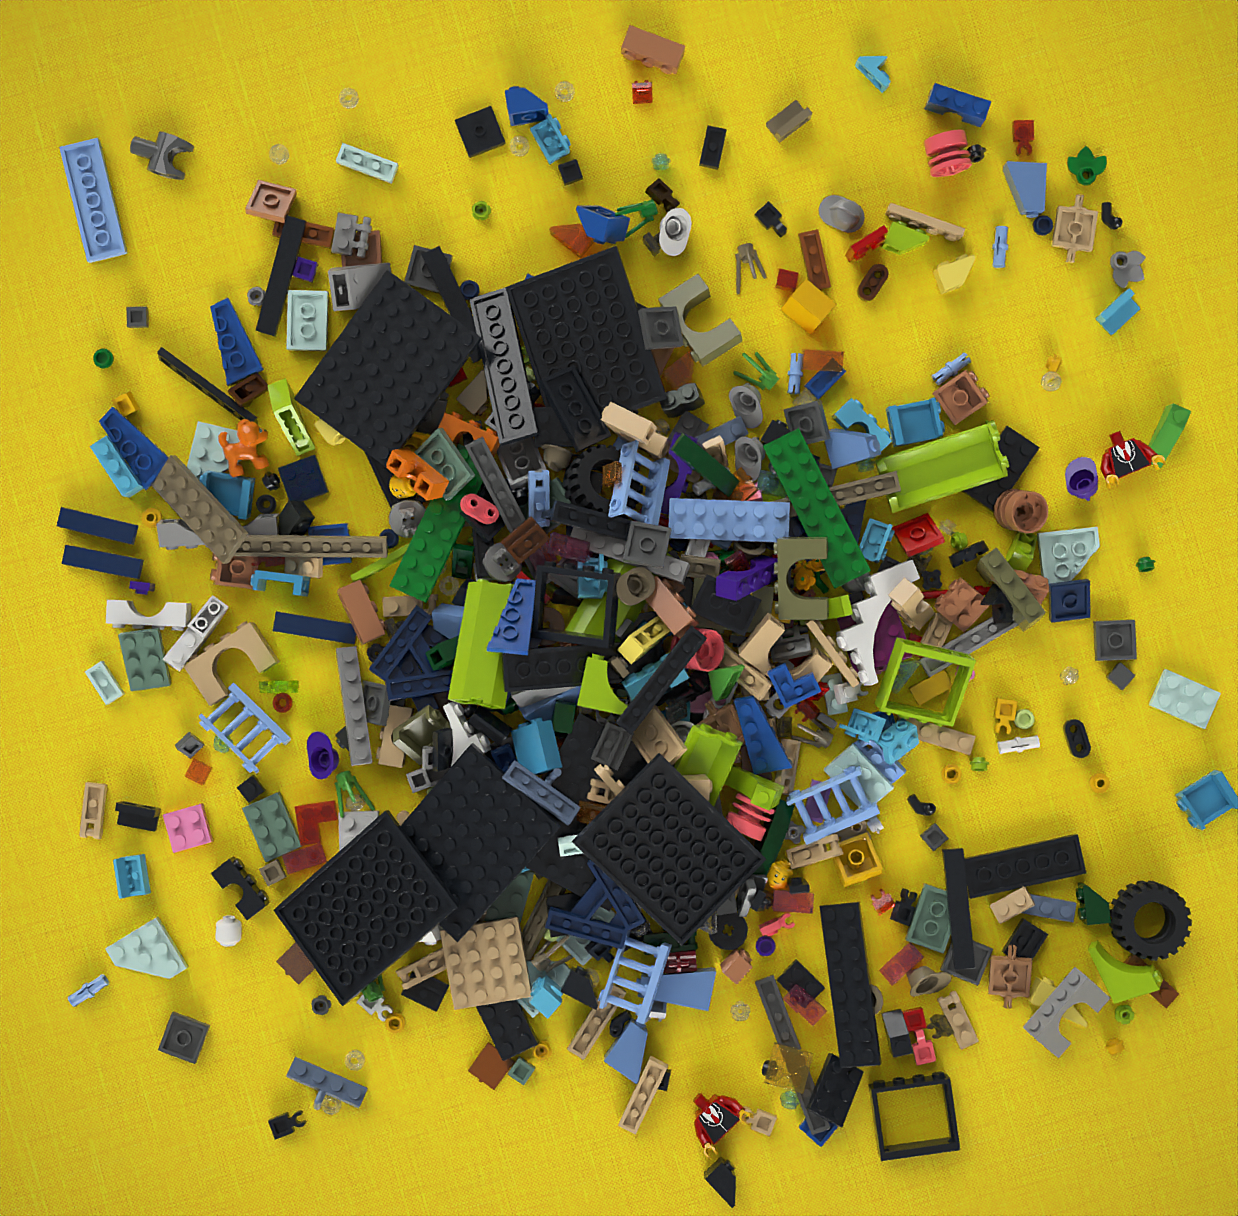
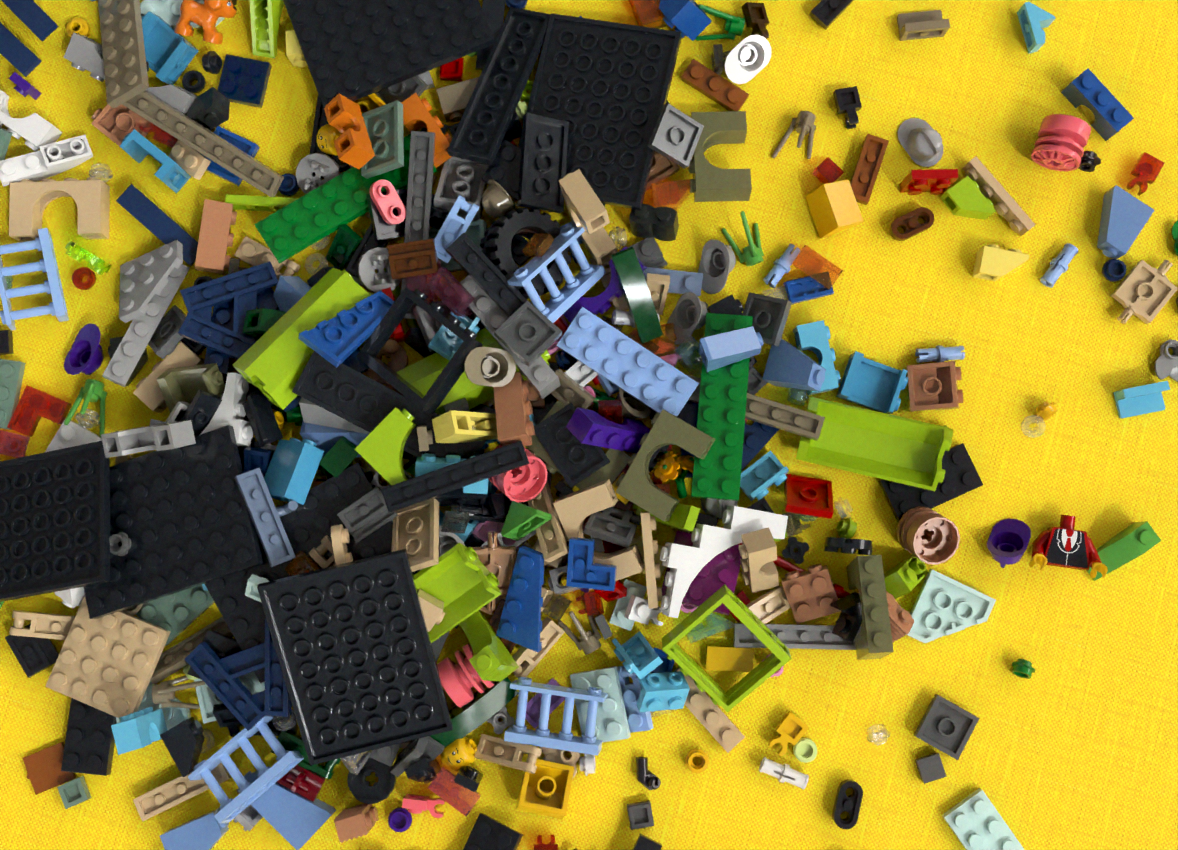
camera: 30 degrees right, 5 degrees down
(243, 616) = (101, 172): none -> clear plate
(332, 674) = (146, 277): none -> light grey plate
(430, 780) = (148, 438): none -> light grey arch
(452, 875) = (115, 541): none -> dark grey plate
(542, 1055) = (106, 790): yellow plate -> none
(618, 1023) = (200, 806): black arm -> none
(661, 266) = (714, 86): none -> dark orange plate
(798, 463) = (729, 347): none -> slope
(979, 764) = (731, 768): lime plate -> none
(1069, 600) = (923, 657): dark blue tile -> none

